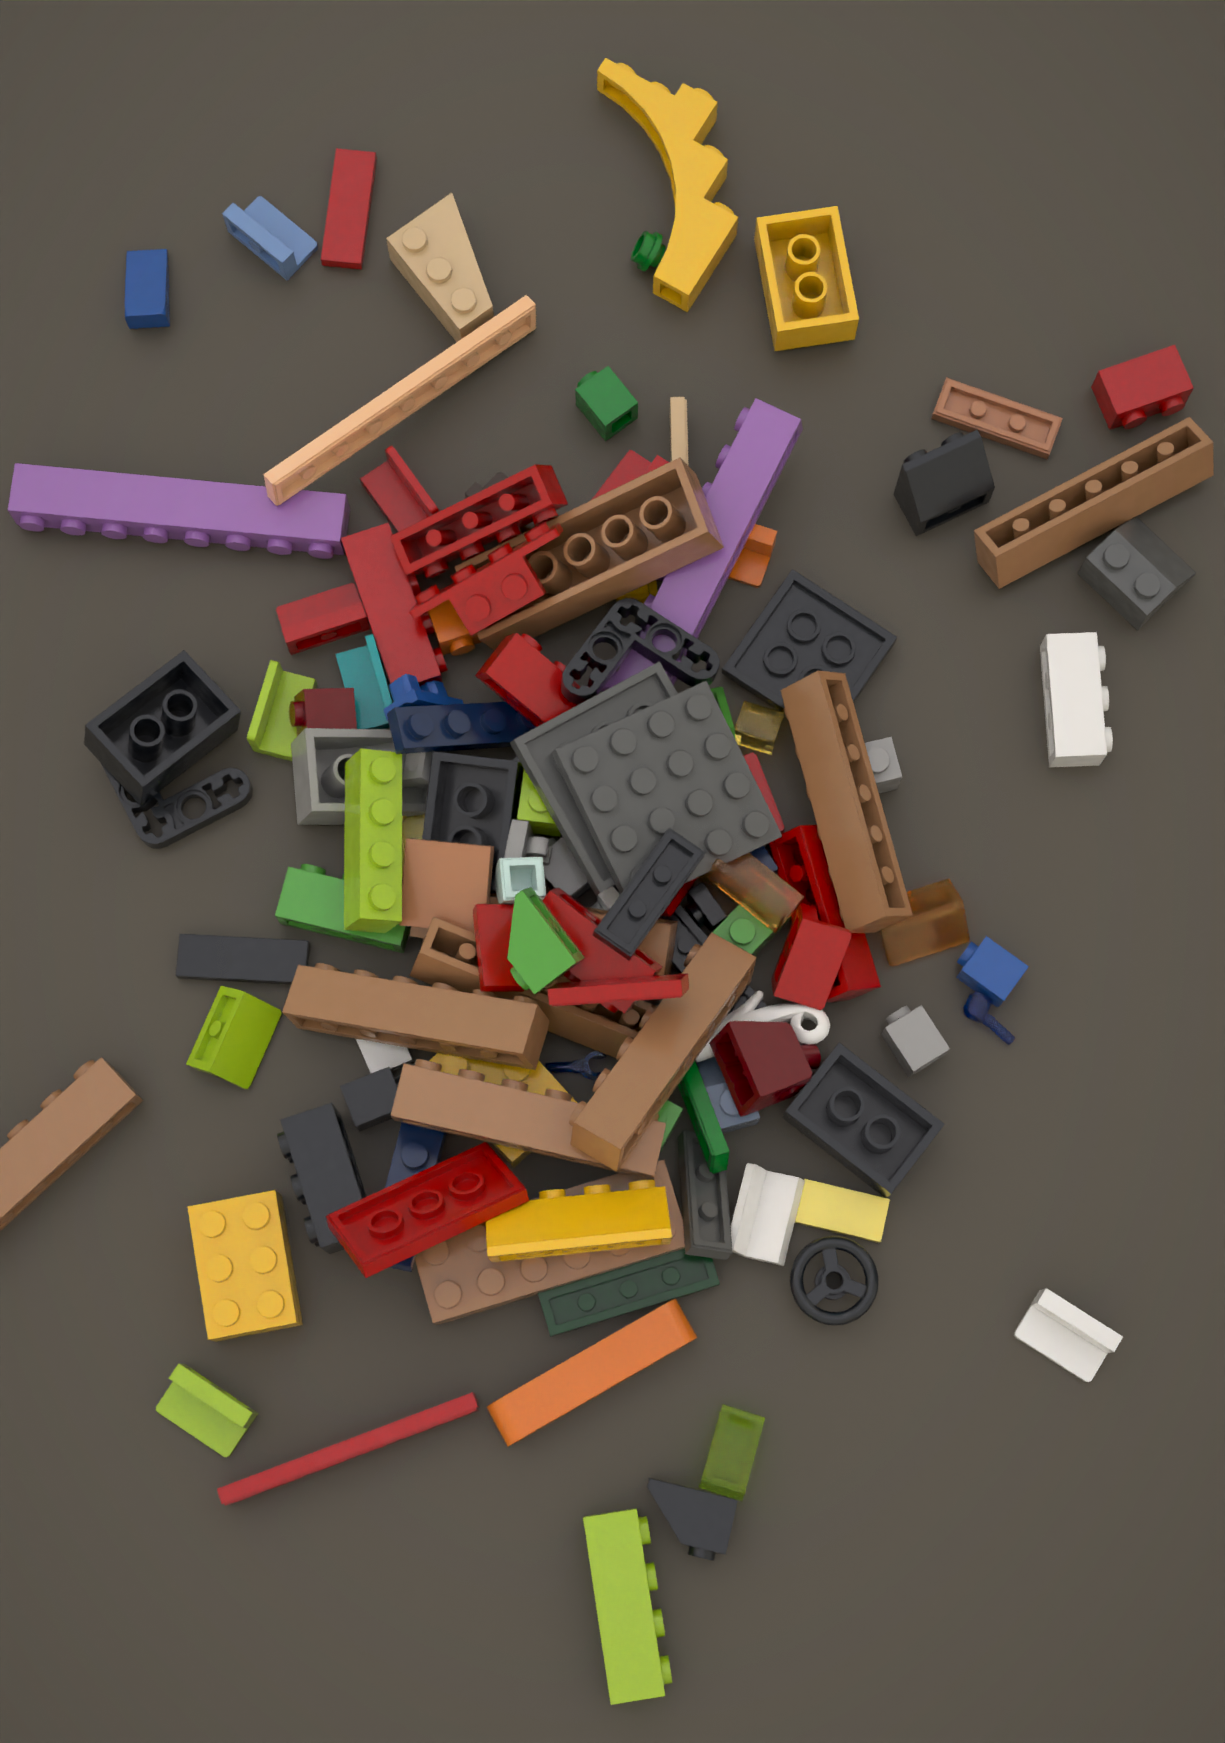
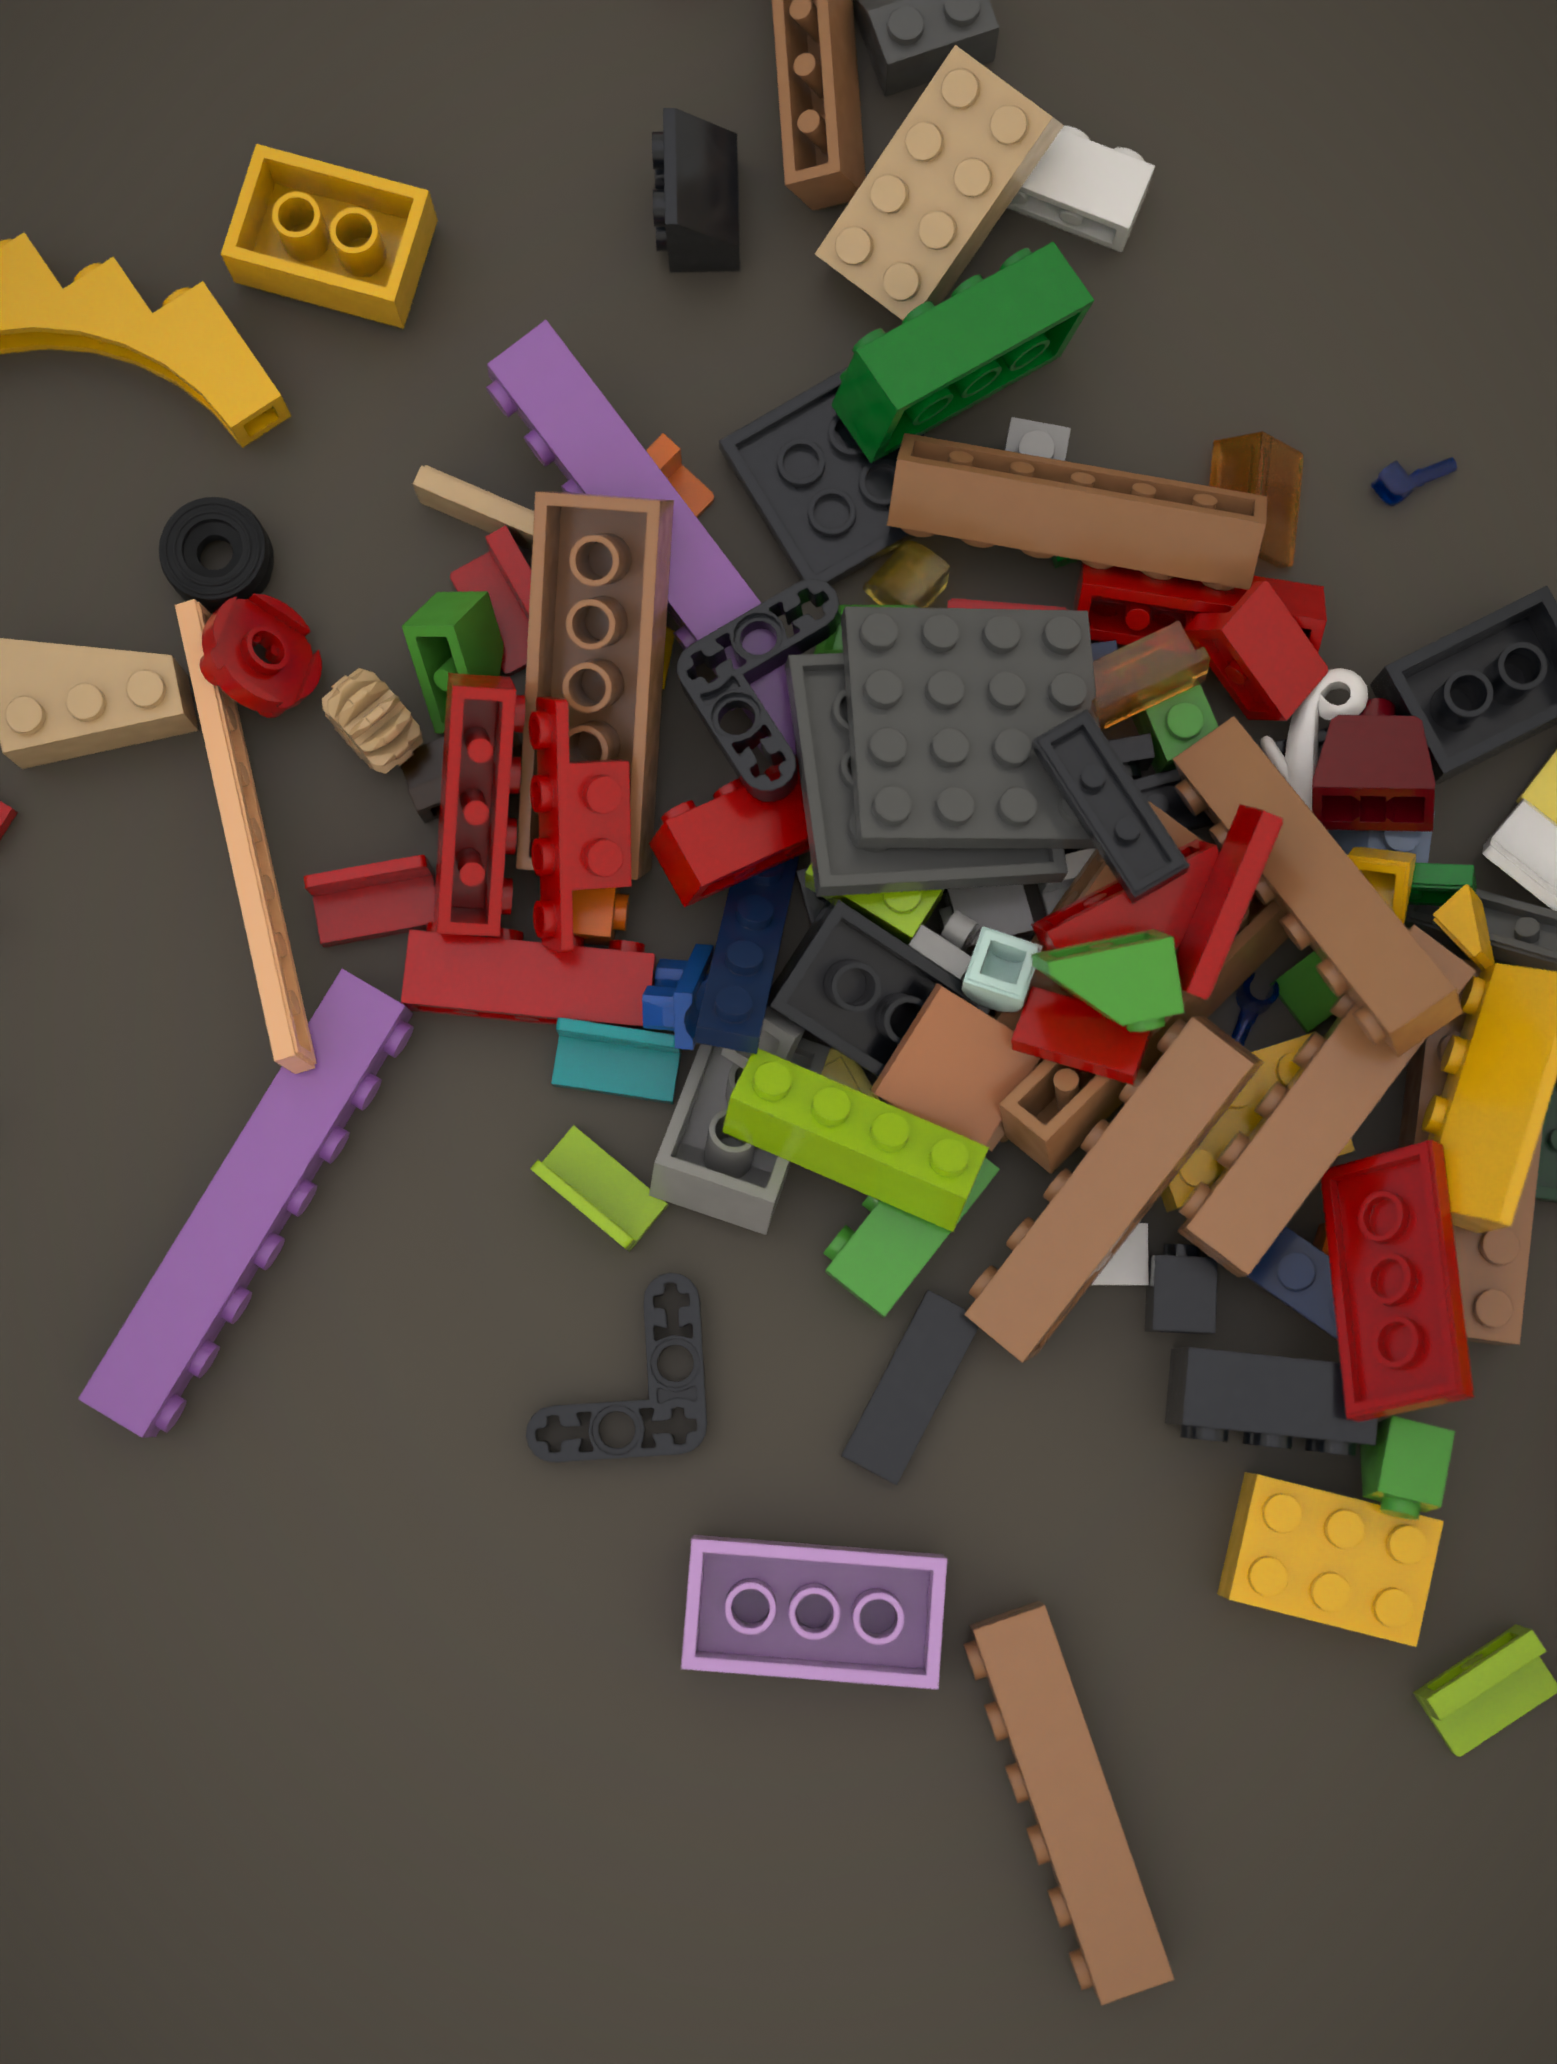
camera: 65 degrees left, 5 degrees up
(72, 955) = (814, 1611): none -> lavender brick
(162, 727) = (555, 1356): black brick -> none
(234, 1037) = (1012, 1444): lime panel -> none
(318, 1280) = (1406, 1466): none -> bright green slope
(322, 618) = (489, 1079): red panel -> none
(323, 709) = (631, 1131): dark red brick -> none
(498, 356) = (240, 673): none -> red plate
(510, 442) = (372, 720): none -> tan gear
(574, 284) = (209, 521): none -> black tyre
(584, 468) = (452, 636): none -> bright green slope
(606, 402) = (371, 574): green brick -> none
(648, 250) = (185, 422): green plate -> none
(687, 1167) = (1466, 925): none -> yellow slope
(693, 1098) = (1388, 873): none -> yellow slope
(913, 1039) = (1406, 578): light grey brick -> none
(917, 684) = (960, 349): none -> green brick
(990, 970) = (1360, 443): blue brick -> none
(997, 418) = (632, 94): nougat tile -> none
(1018, 624) = (939, 186): none -> tan brick

